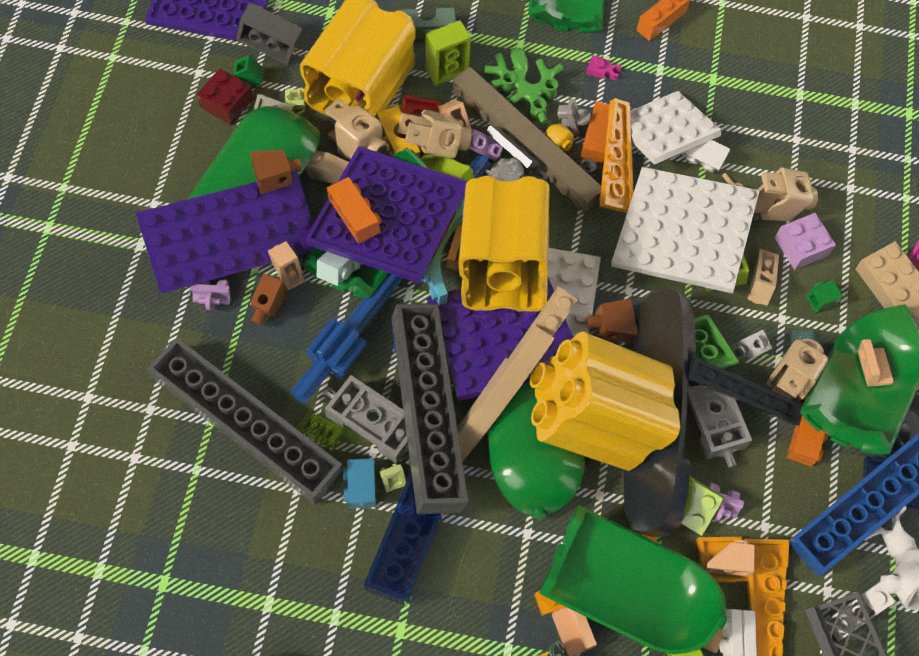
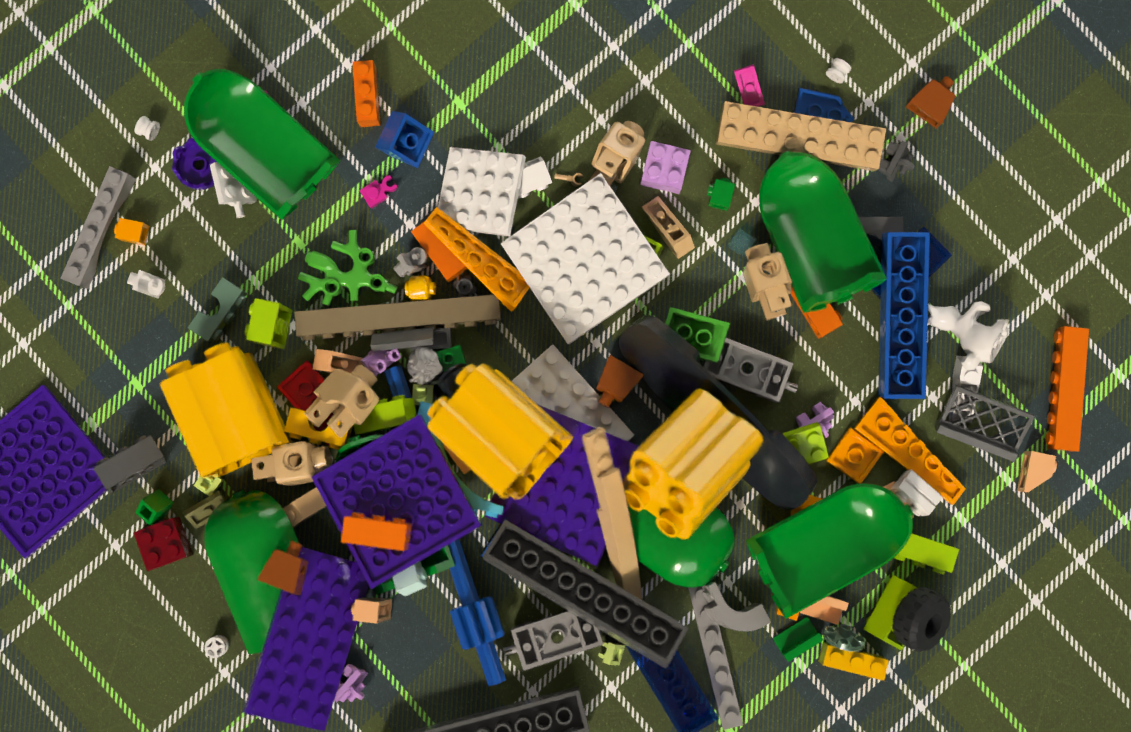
camera: 45 degrees left, 20 degrees up
(171, 176) = (211, 647): none -> white wheel
(268, 298) = (387, 638): dark orange torso -> none
(329, 443) = (541, 684): clear neon green slope -> none
(361, 483) = (599, 681): dark azure brick -> none
(457, 567) = (716, 662): none -> light grey plate
(500, 551) = (747, 619): none -> light grey arch
(527, 628) = (797, 639): none -> green panel
(656, 58) = (404, 139): none -> blue slope
(733, 560) = (865, 454): light nougat slope -> none
(744, 391) = (753, 339): black plate -> none
(751, 346) = (718, 293): light grey hips -> none
(874, 364) = (806, 210): light nougat panel -> none

